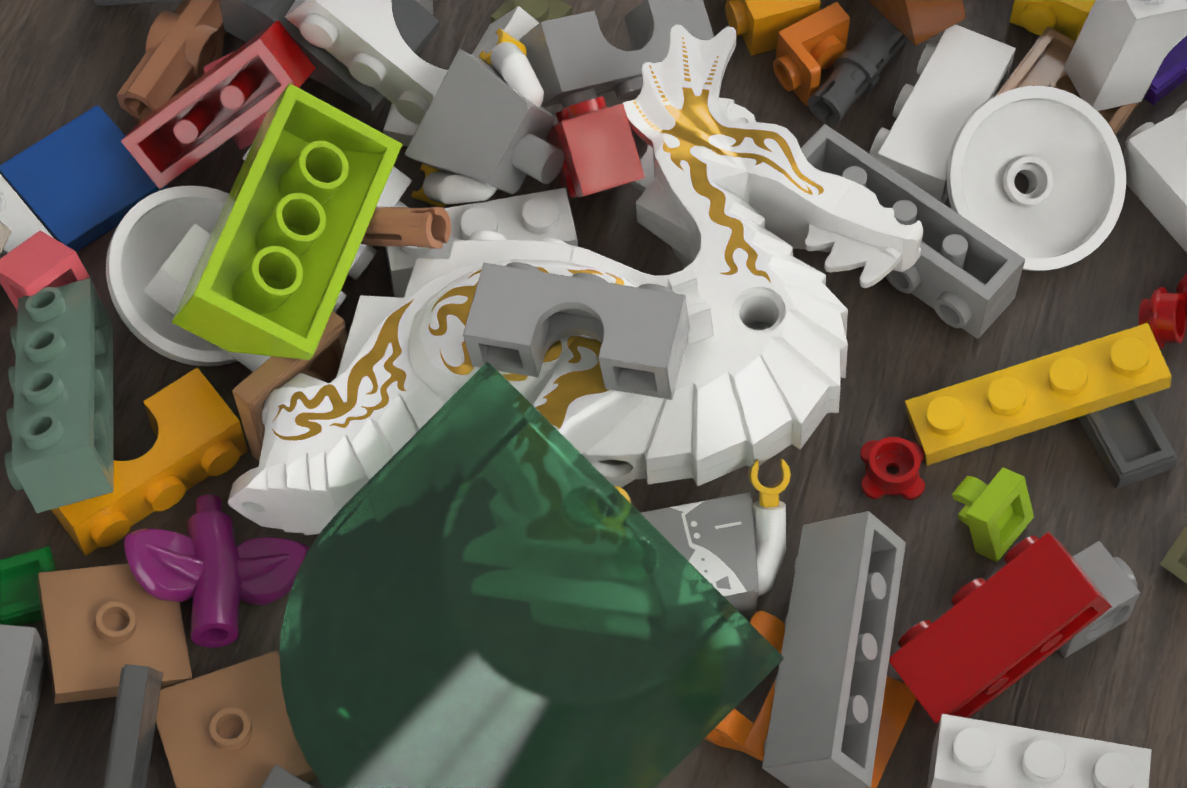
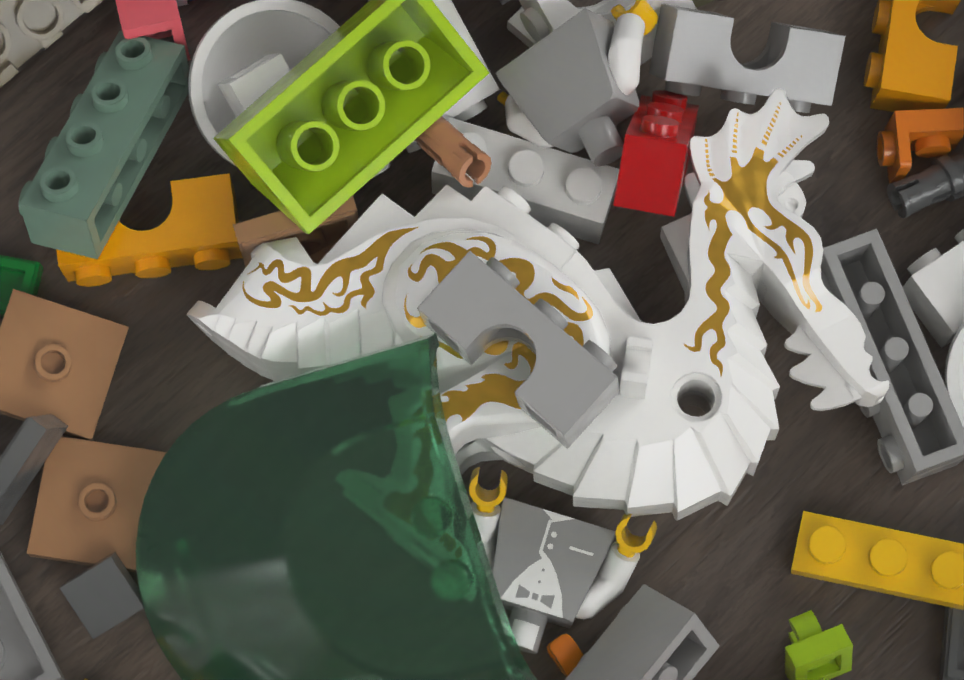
camera: 25 degrees right, 15 degrees up
(213, 569) = (156, 355): magenta plant -> none
(893, 452) = (773, 559): red plate -> none

